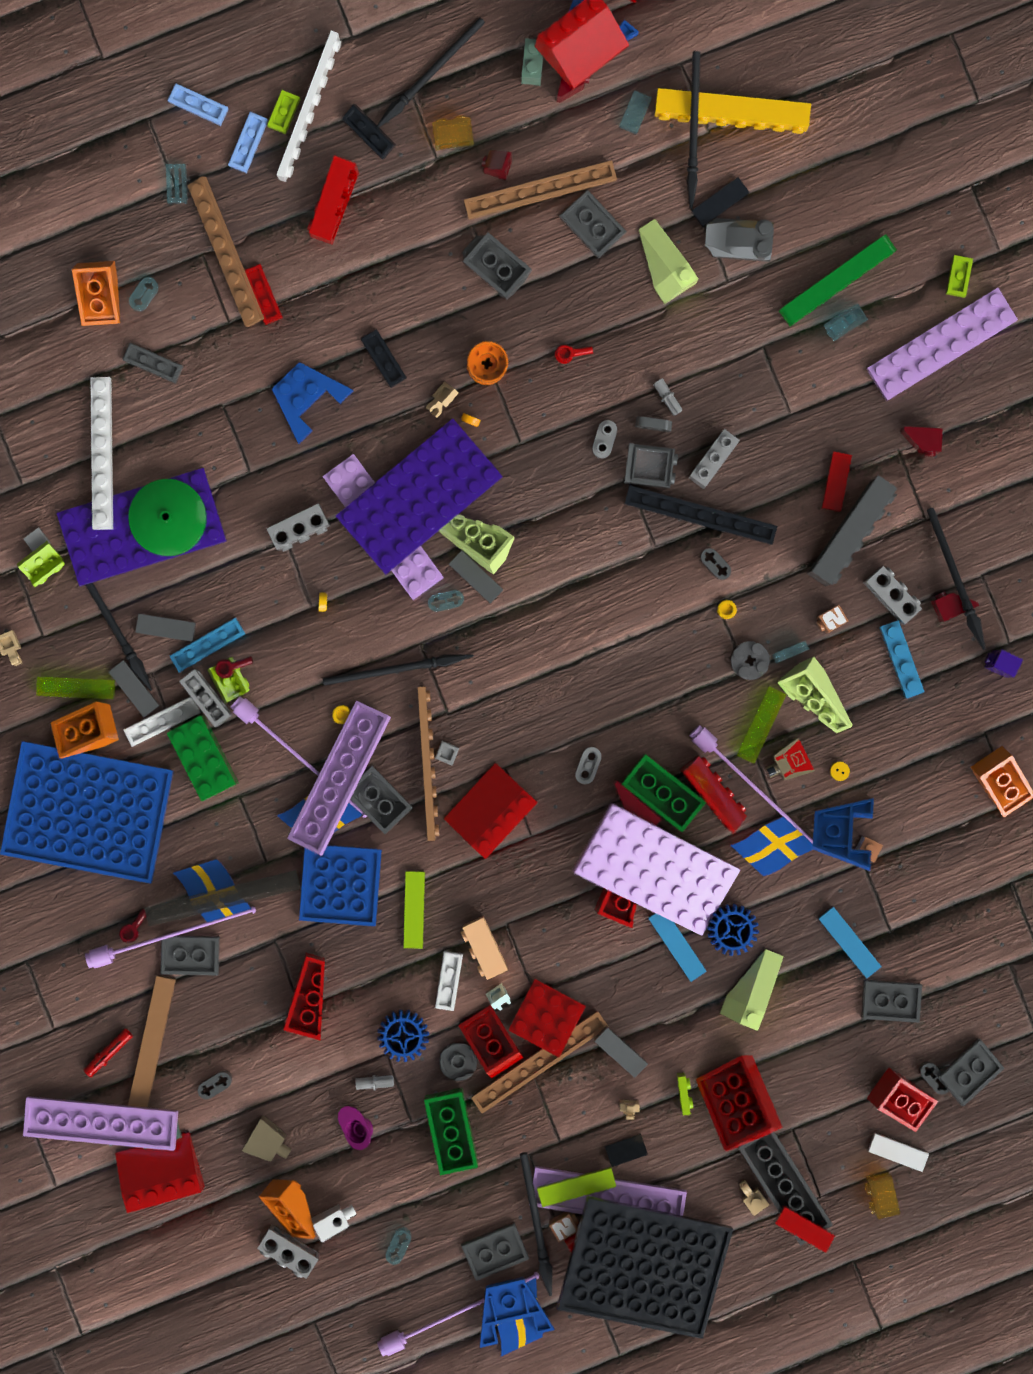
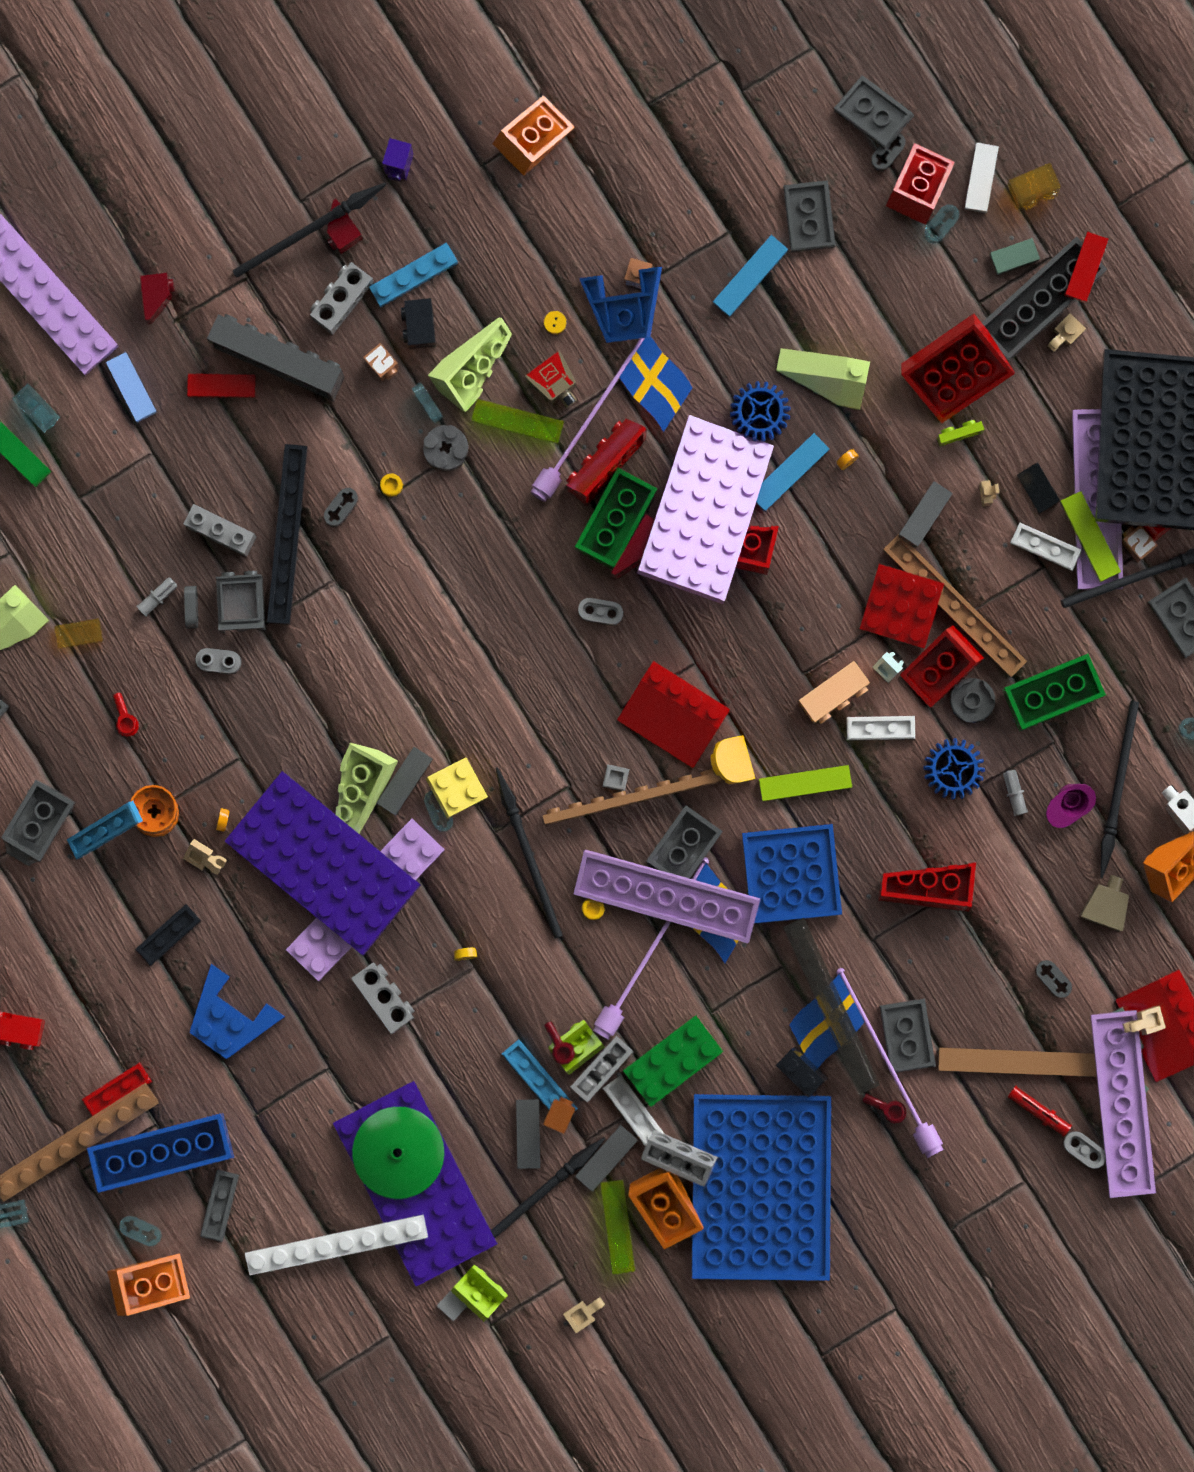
camera: 95 degrees left, 5 degrees down
(70, 1083) = (1084, 1149): none -> light grey plate
(119, 749) = (679, 1158): none -> light grey brick
(162, 1158) = (1148, 1021): none -> tan plate
(172, 656) = (560, 1115): none -> dark orange piece
(174, 863) = (802, 1071): none -> black brick
(202, 320) = (160, 1152): none -> blue brick
(334, 1157) = (1108, 840): none -> black piece
(442, 852) = (732, 760): none -> yellow tile
(462, 619) = (456, 787): none -> light yellow plate
(478, 319) = (104, 830): none -> dark azure tile
(575, 1147) = (1046, 546): none -> white tile
(648, 326) = (78, 633): none -> clear yellow tile
(679, 995) = (847, 459): none -> light orange tile
(826, 1167) = (1014, 256): none -> sand green tile
(849, 405) = (131, 387): none -> light blue tile
(859, 657) = (419, 323): none -> black brick
(868, 1108) = (945, 227): none -> clear light blue beam

